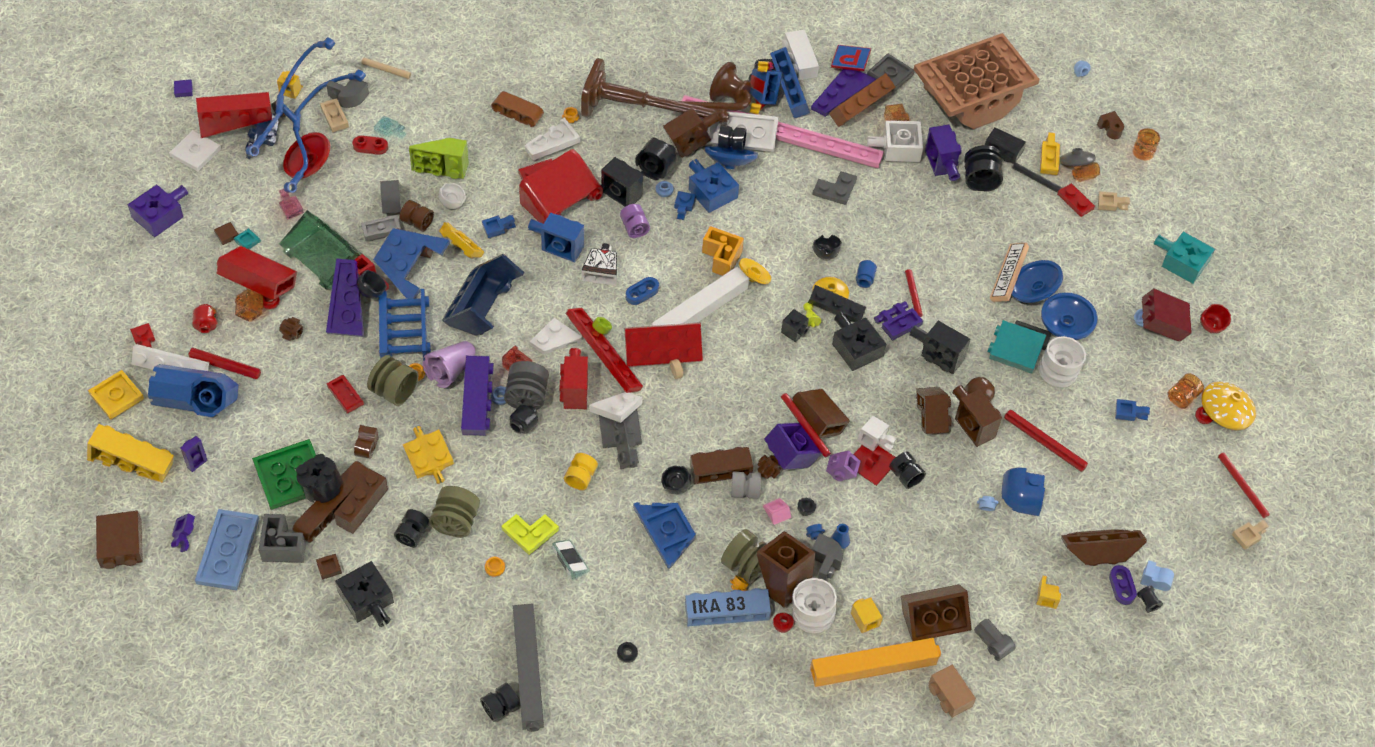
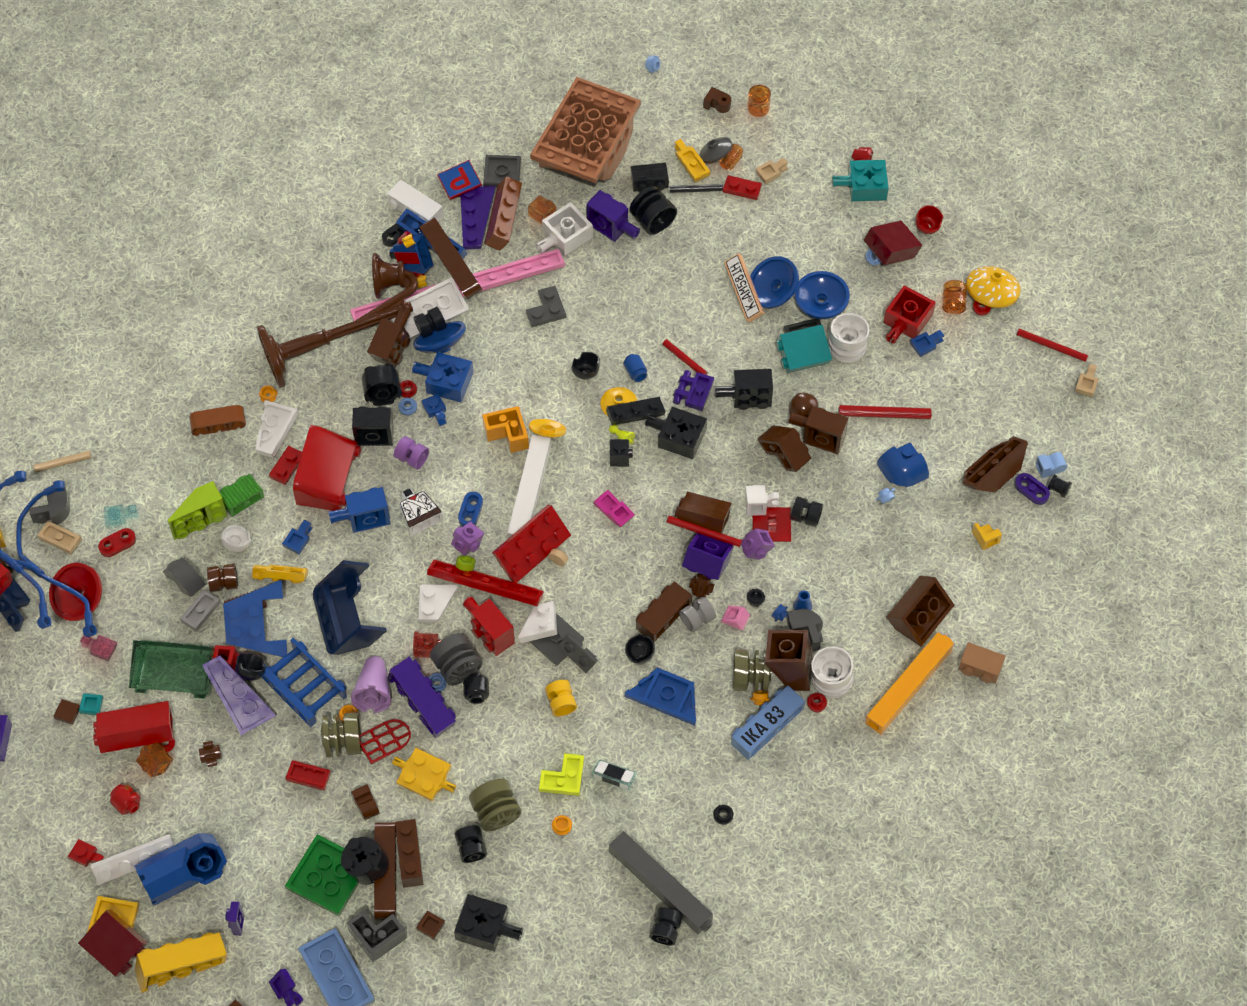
camera: 35 degrees left, 5 degrees up
(95, 405) = (113, 943): none -> dark red brick
(225, 363) = (179, 825): red axle -> none
(418, 402) = (381, 746): none -> red window
(484, 169) = (241, 494): none -> bright green brick
(618, 308) = (467, 538): none -> medium lavender brick
(676, 173) = (408, 384): none -> red plate
(754, 364) = (613, 509): none -> dark pink slope
(788, 102) = (450, 258): none -> reddish brown beam
(866, 614) = (872, 650): yellow brick -> none
(997, 643) = (983, 601): dark grey piece -> none
(1131, 377) = (908, 314): none -> red brick
(1201, 234) = (862, 153): none -> red cone

